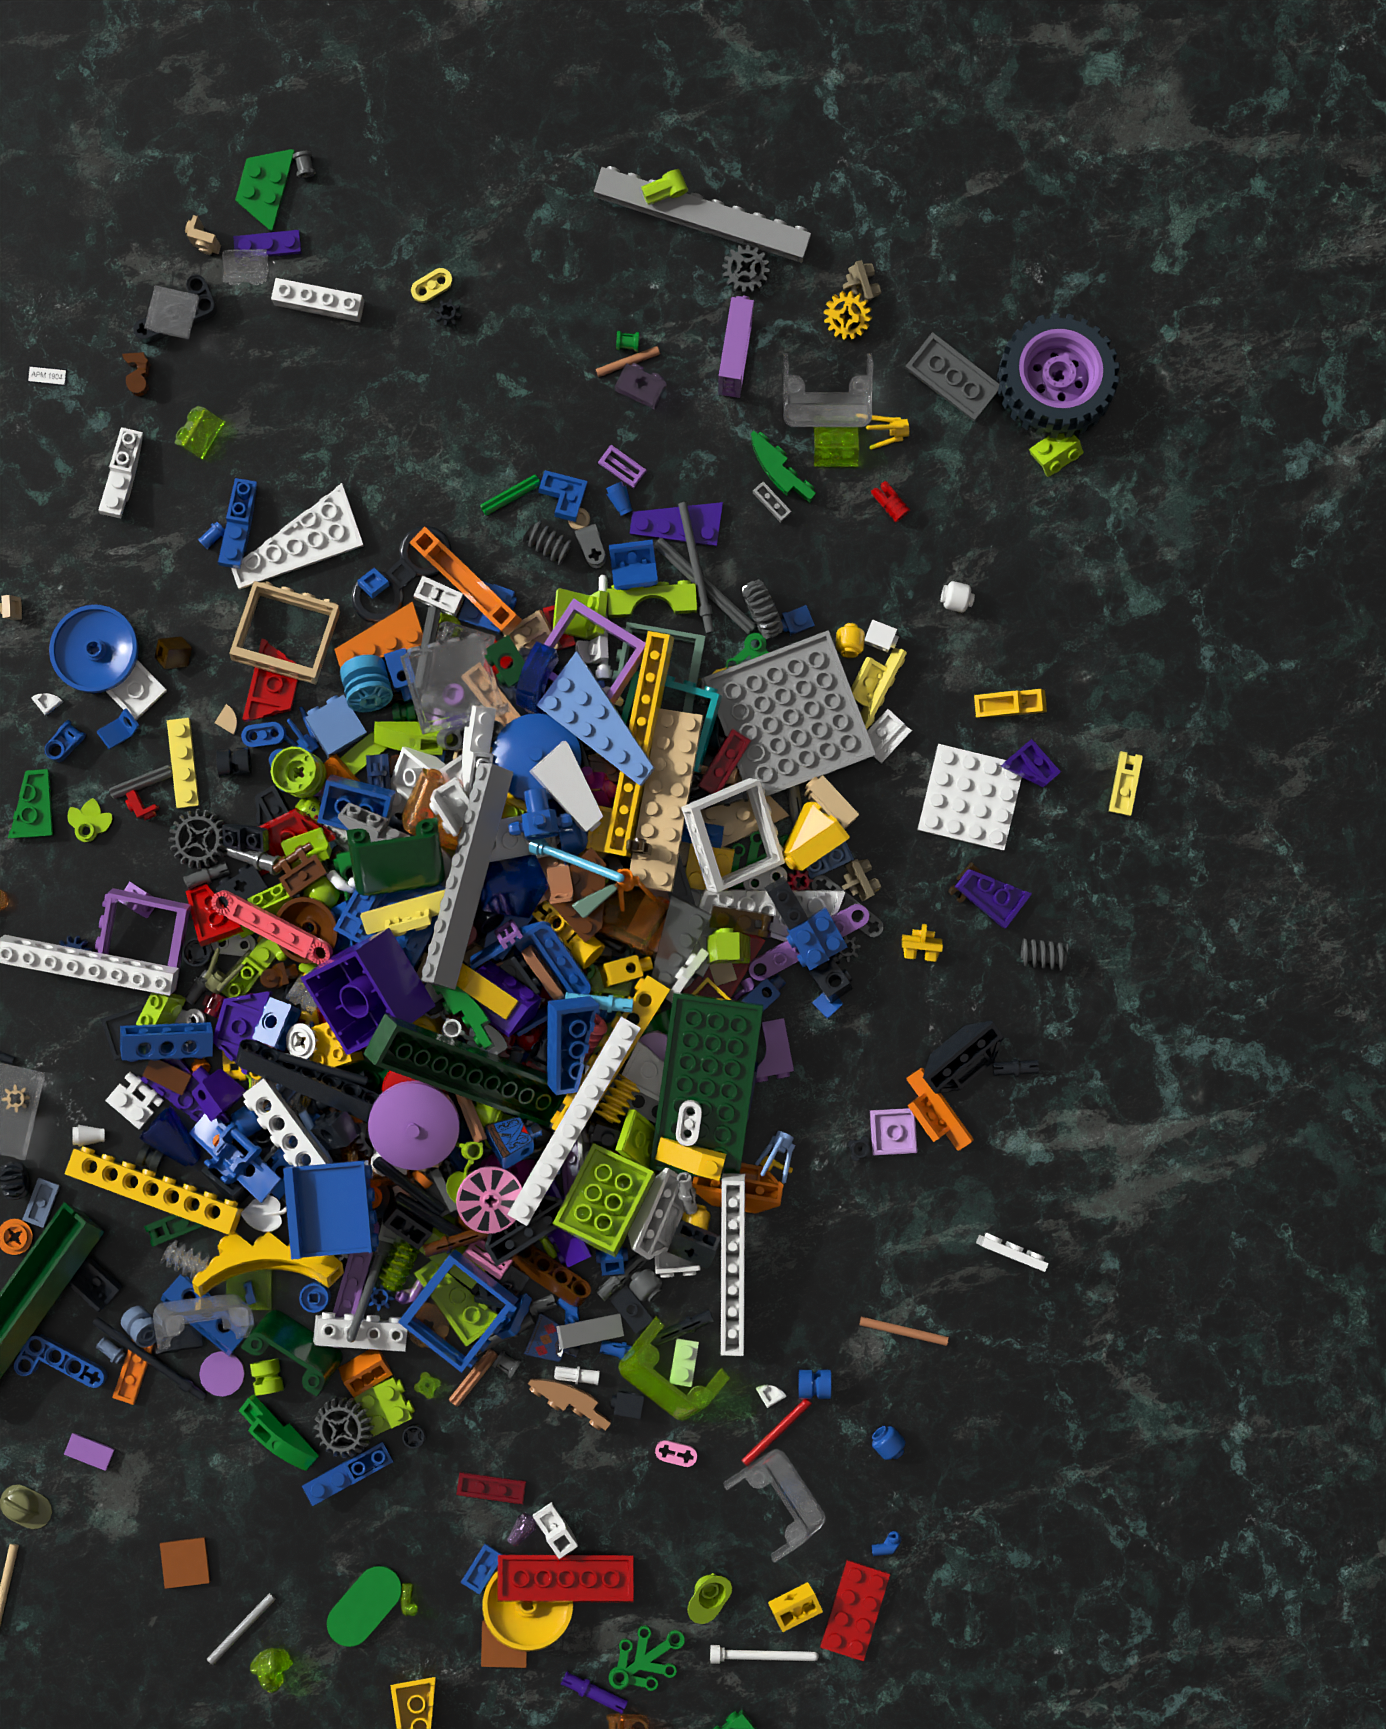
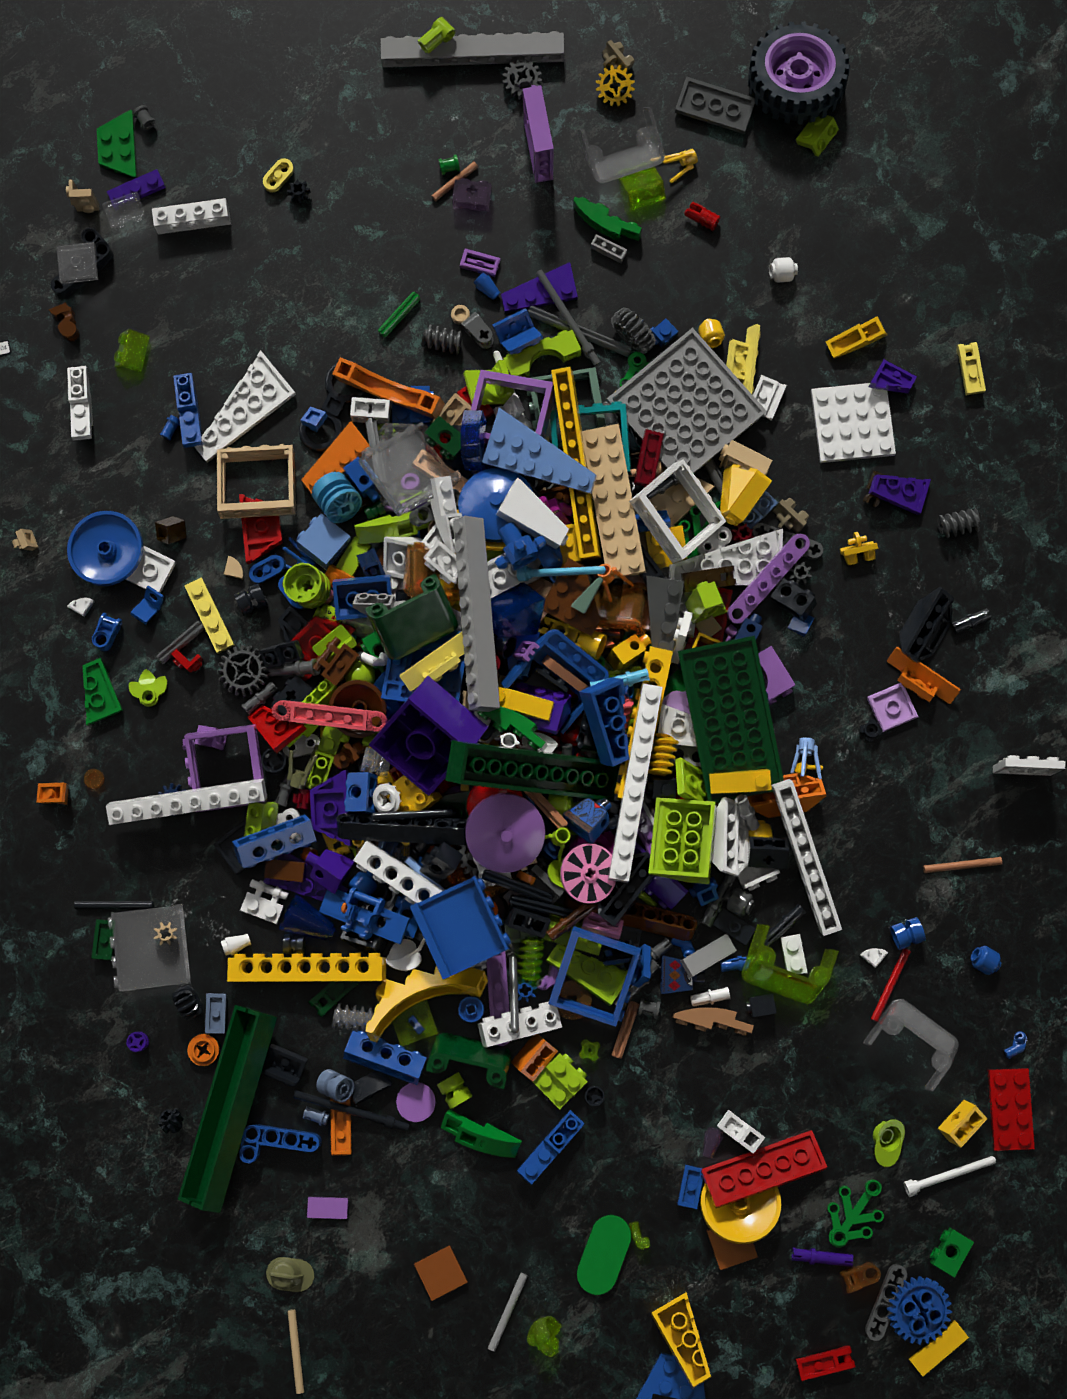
camera: 20 degrees left, 5 degrees down
(172, 1315) = (360, 1065): clear windscreen -> none
(328, 1420) = (526, 1107): dark grey gear -> none
(491, 1488) = (673, 1116): dark red tile -> none
(560, 884) = (554, 593): nougat bracket -> none
(568, 490) = (444, 294): blue plate -> none
(638, 846) = (606, 542): dark brown plate -> none
(675, 1459) = (814, 1027): bright pink beam -> none
(689, 1122) = (729, 752): white plate -> none
(786, 903) = (740, 551): black brick -> none
(816, 939) = (774, 571): blue plate -> none
(881, 636) = (734, 321): white brick -> none

